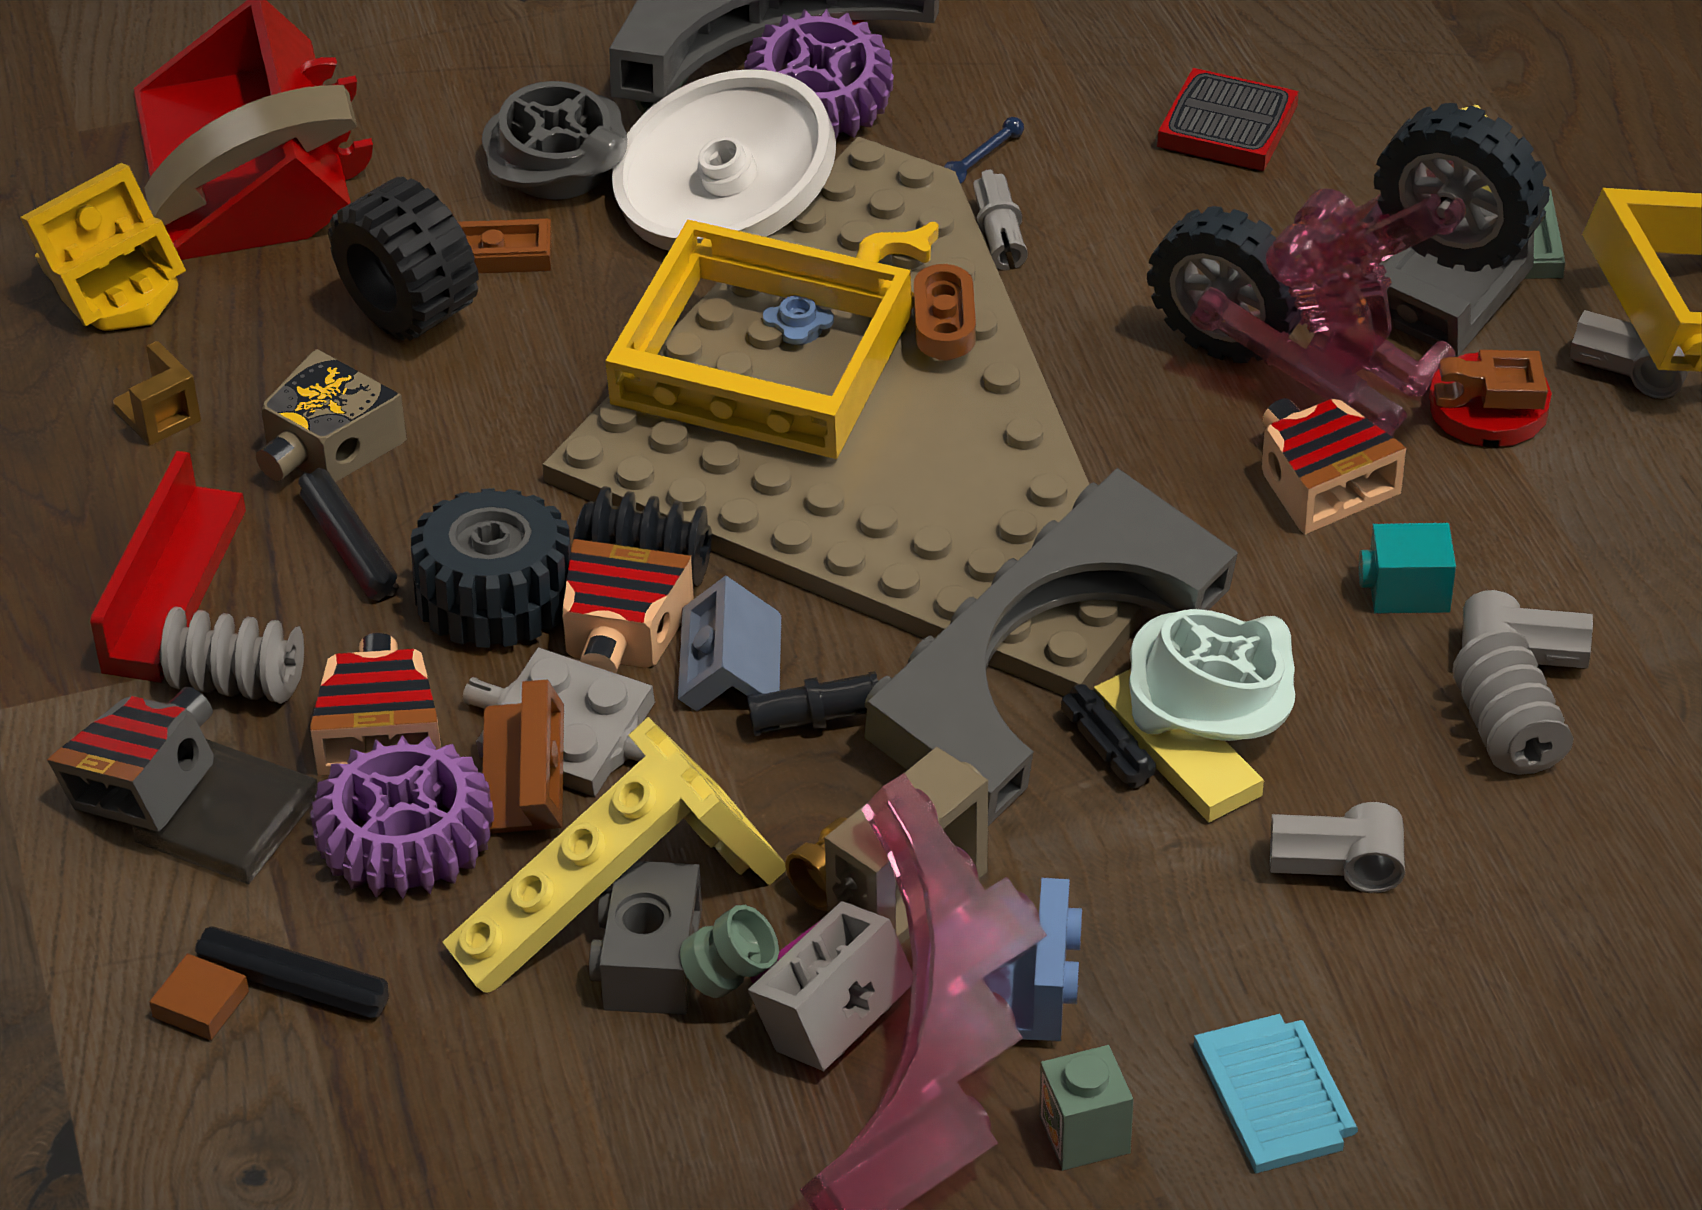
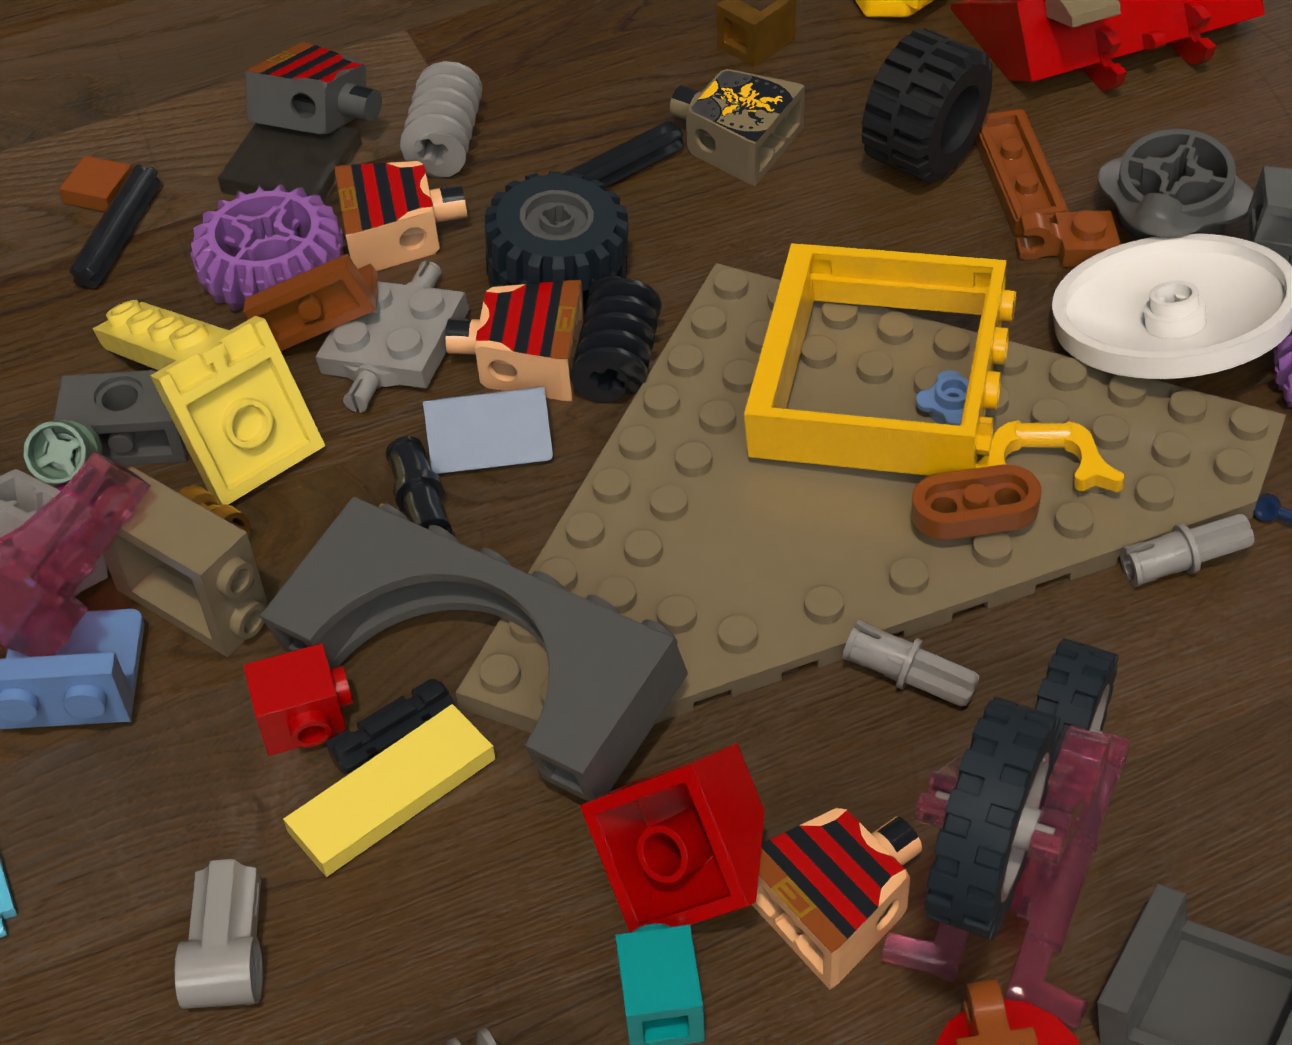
camera: 85 degrees right, 5 degrees up
(163, 568) = (556, 66): red panel -> none
(582, 221) = (1069, 236): none -> dark orange plate
(1077, 792) = (297, 698): none -> red brick
(1096, 394) = (909, 664): none -> light grey axle
(1212, 675) = (406, 742): light aqua piece -> none
(1292, 519) = (681, 840): none -> red slope

